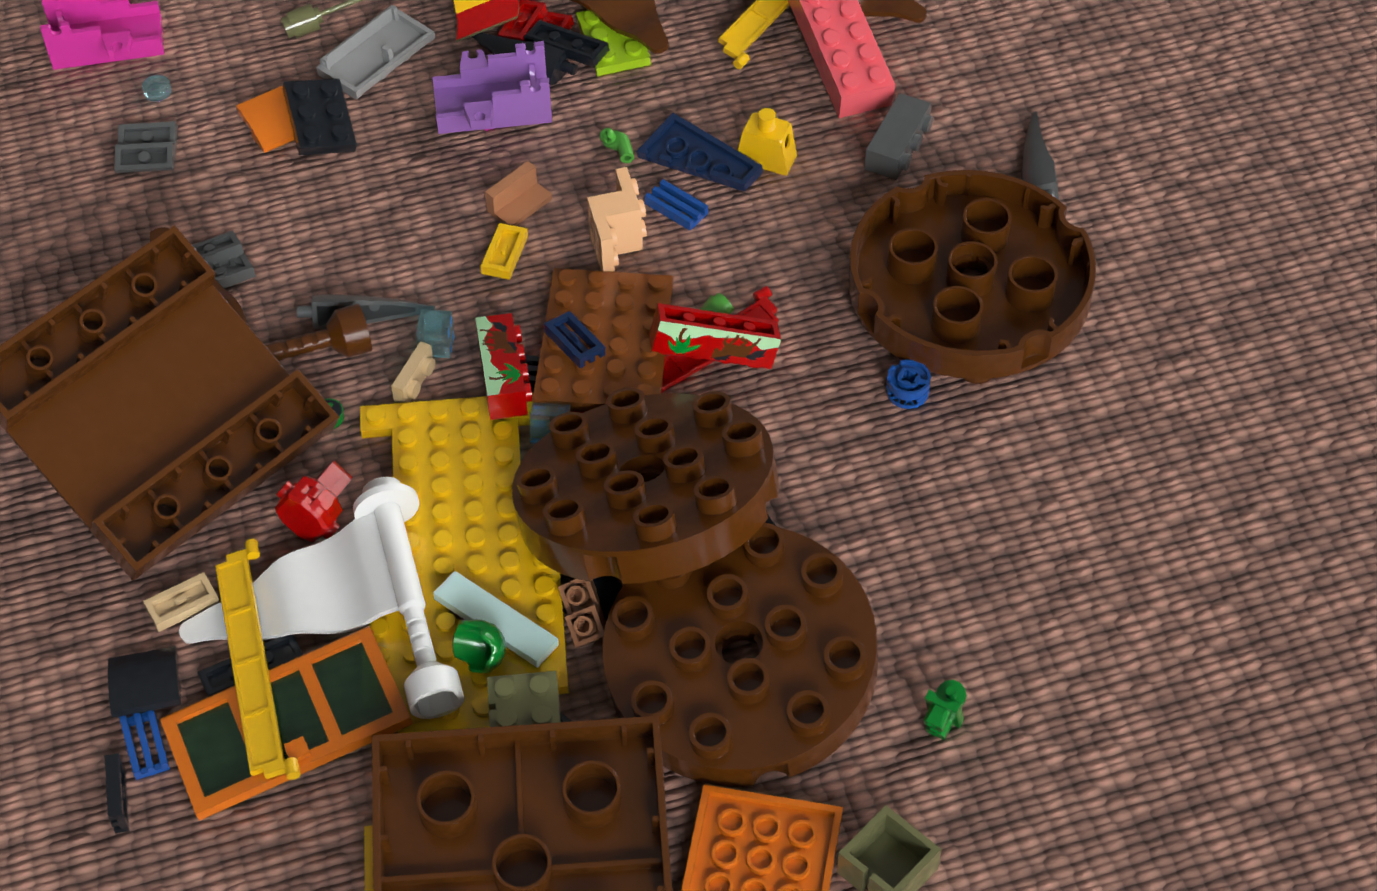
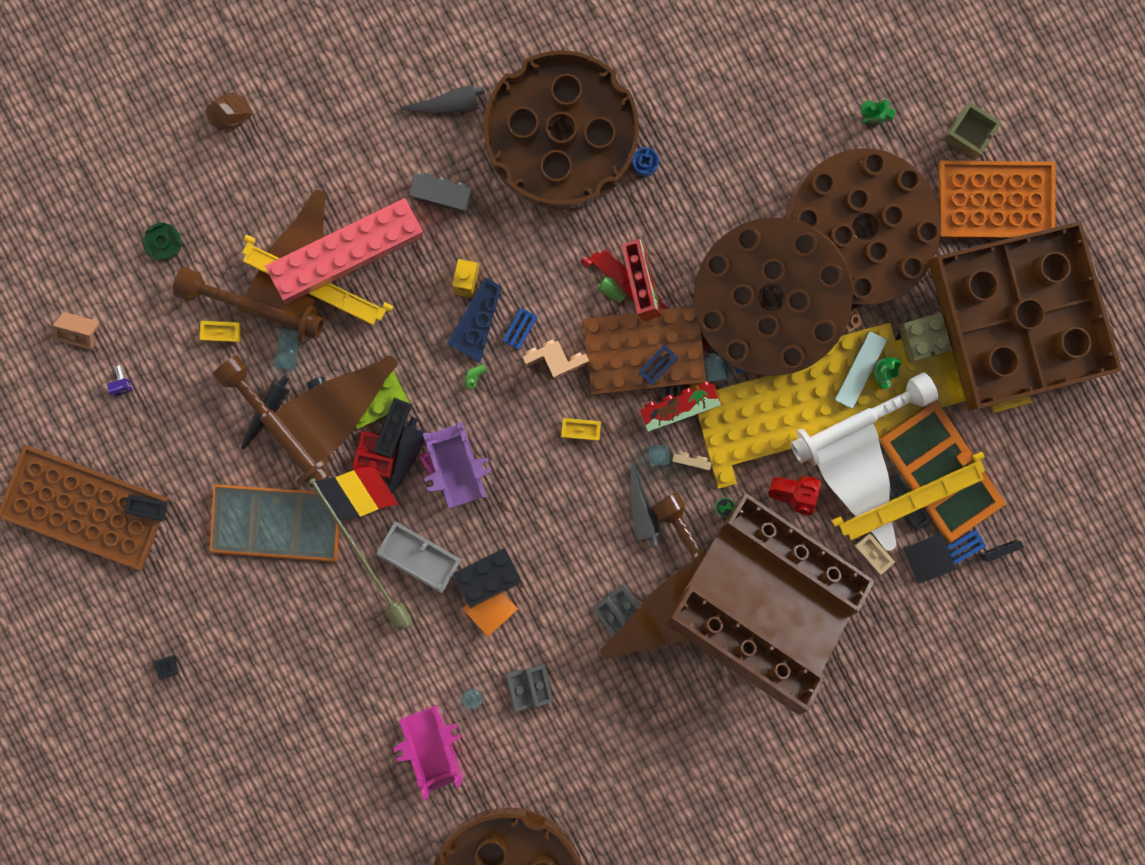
camera: 100 degrees left, 35 degrees up
(517, 196) = (533, 430): nougat panel -> none

